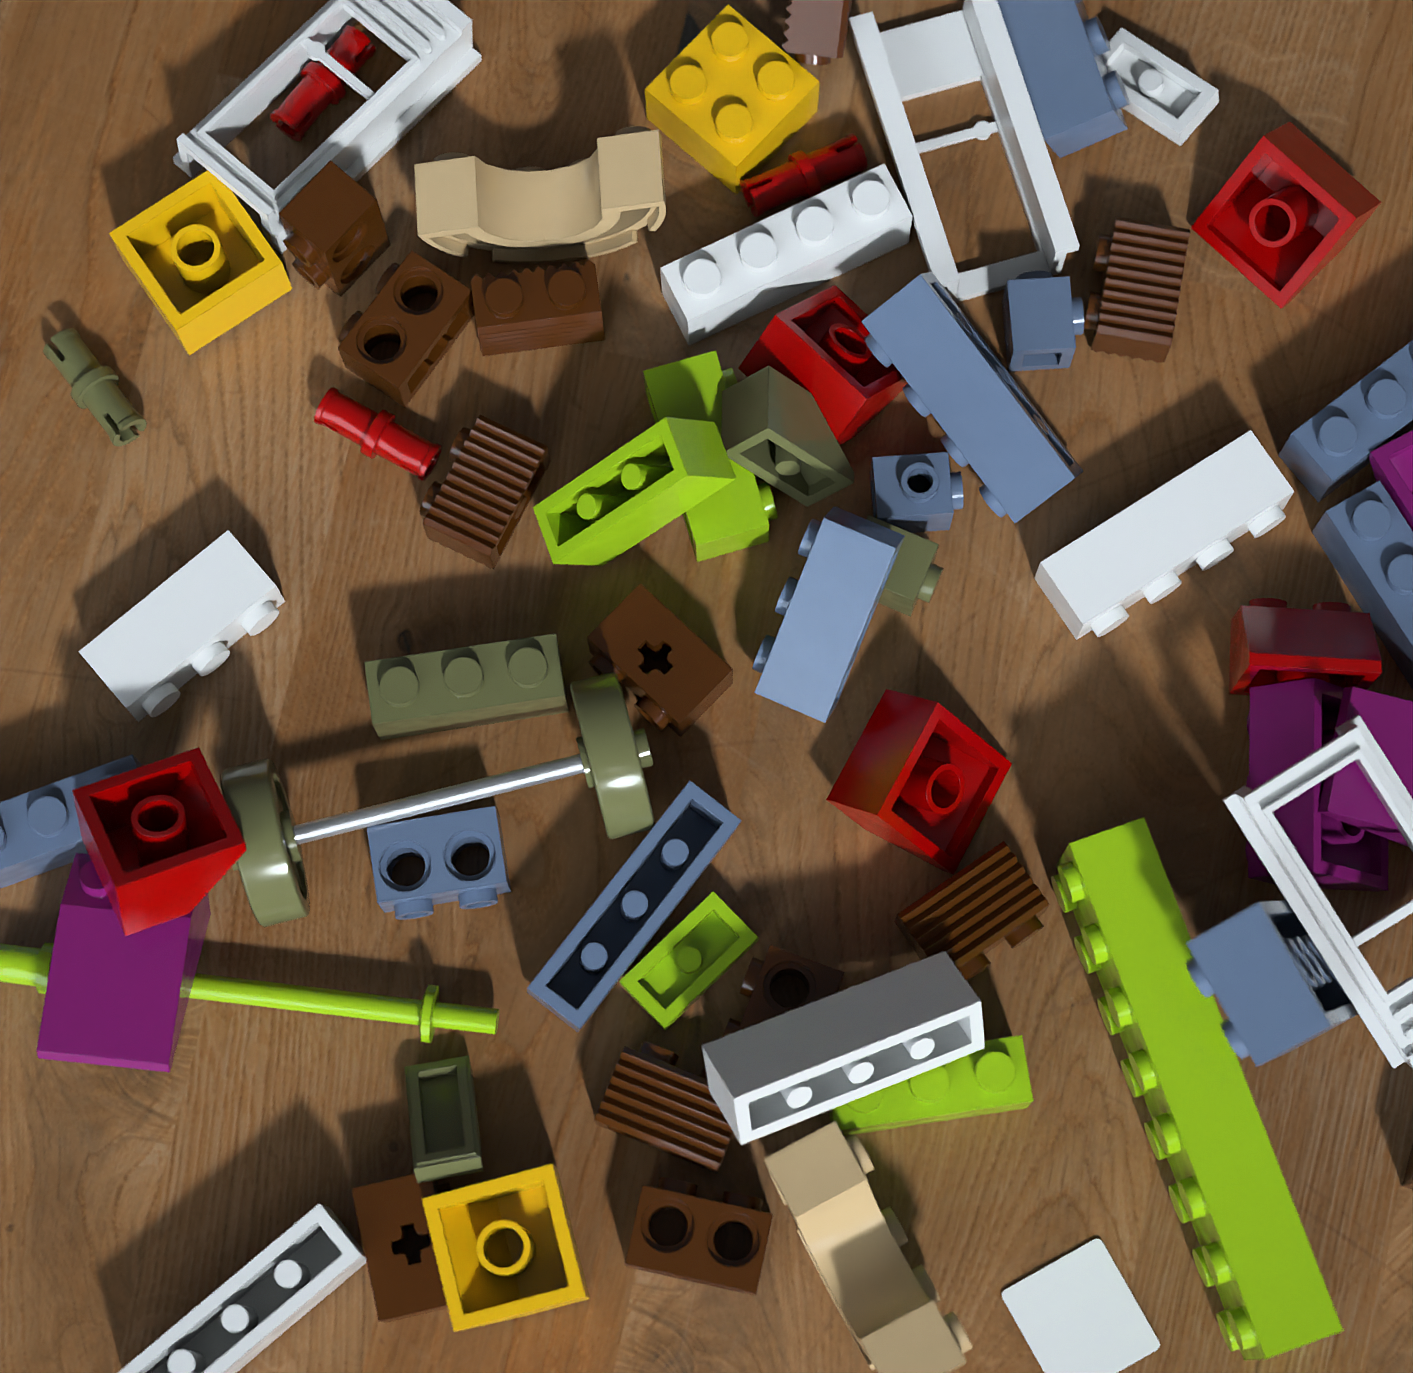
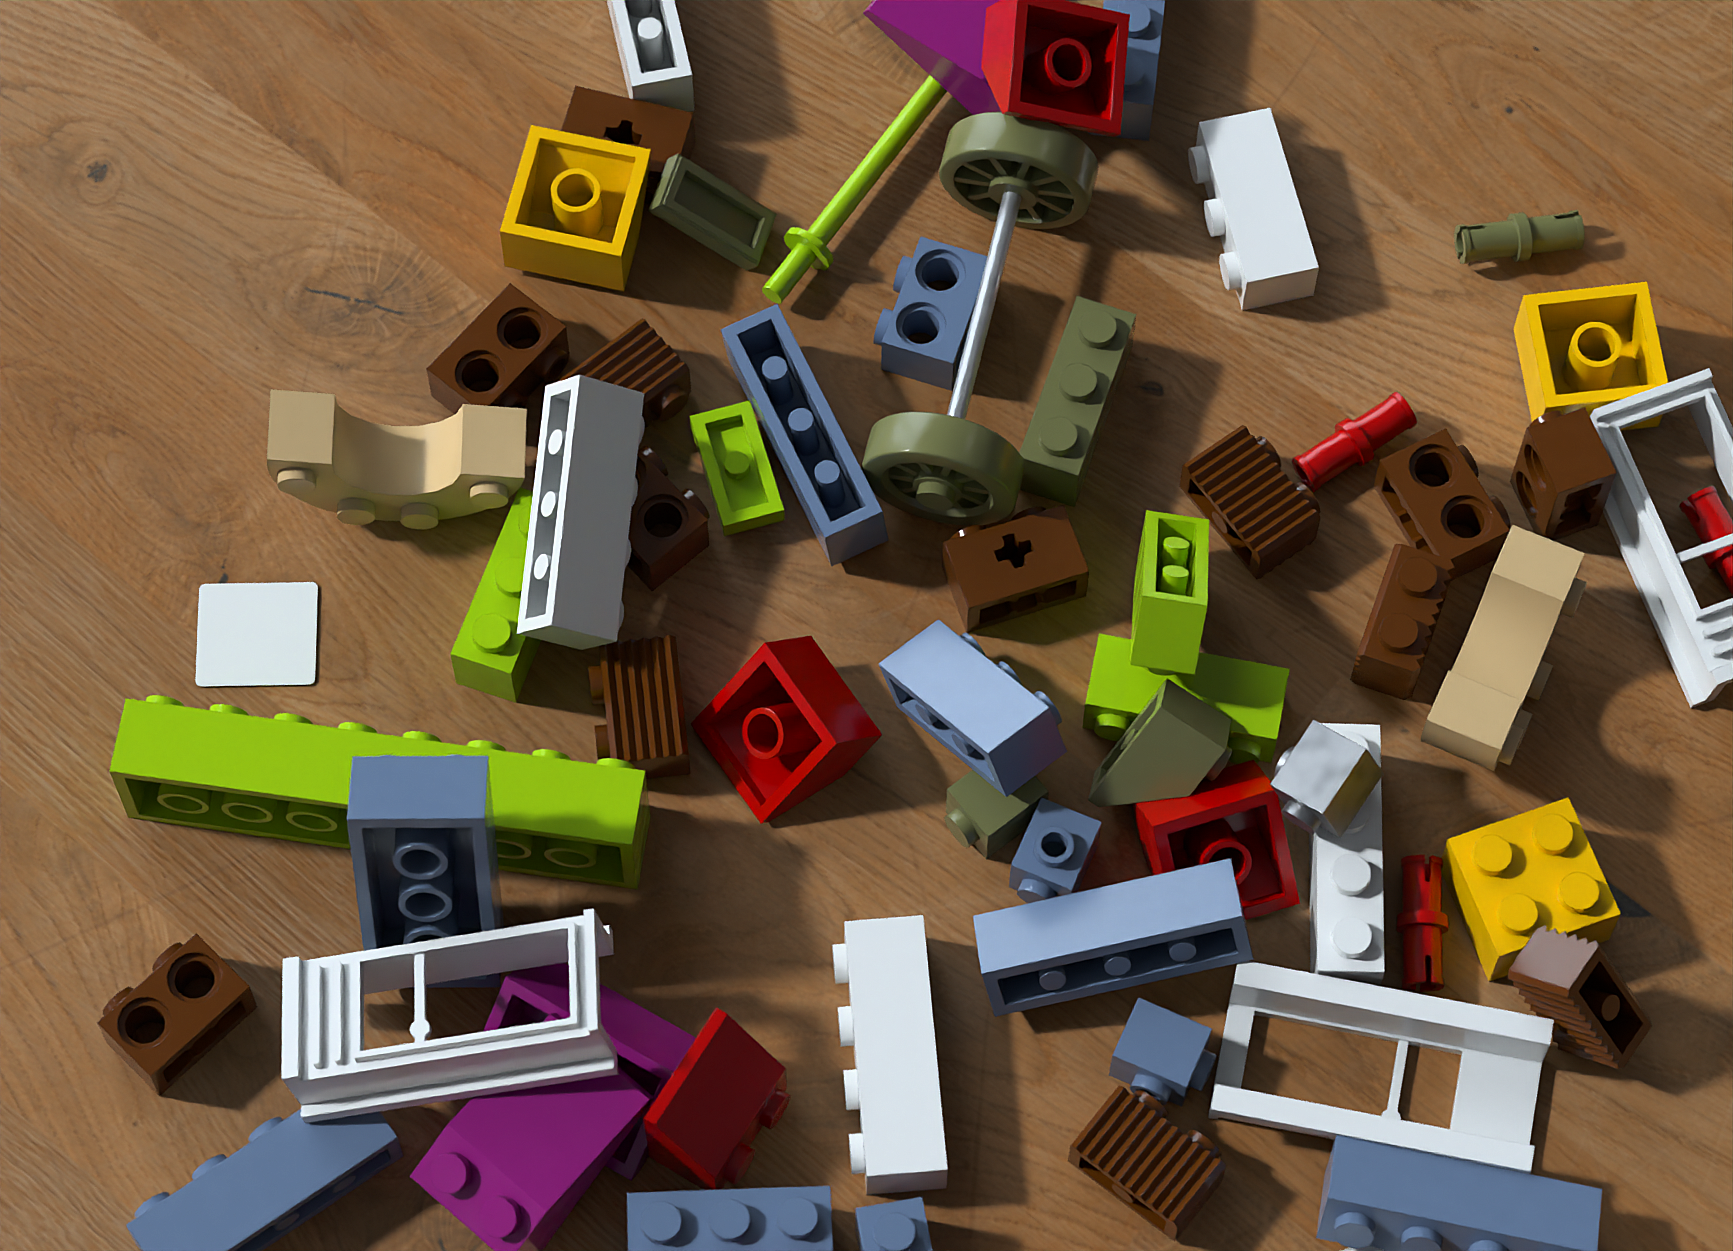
camera: 115 degrees right, 10 degrees down
(753, 273) = (1324, 780): none -> brick

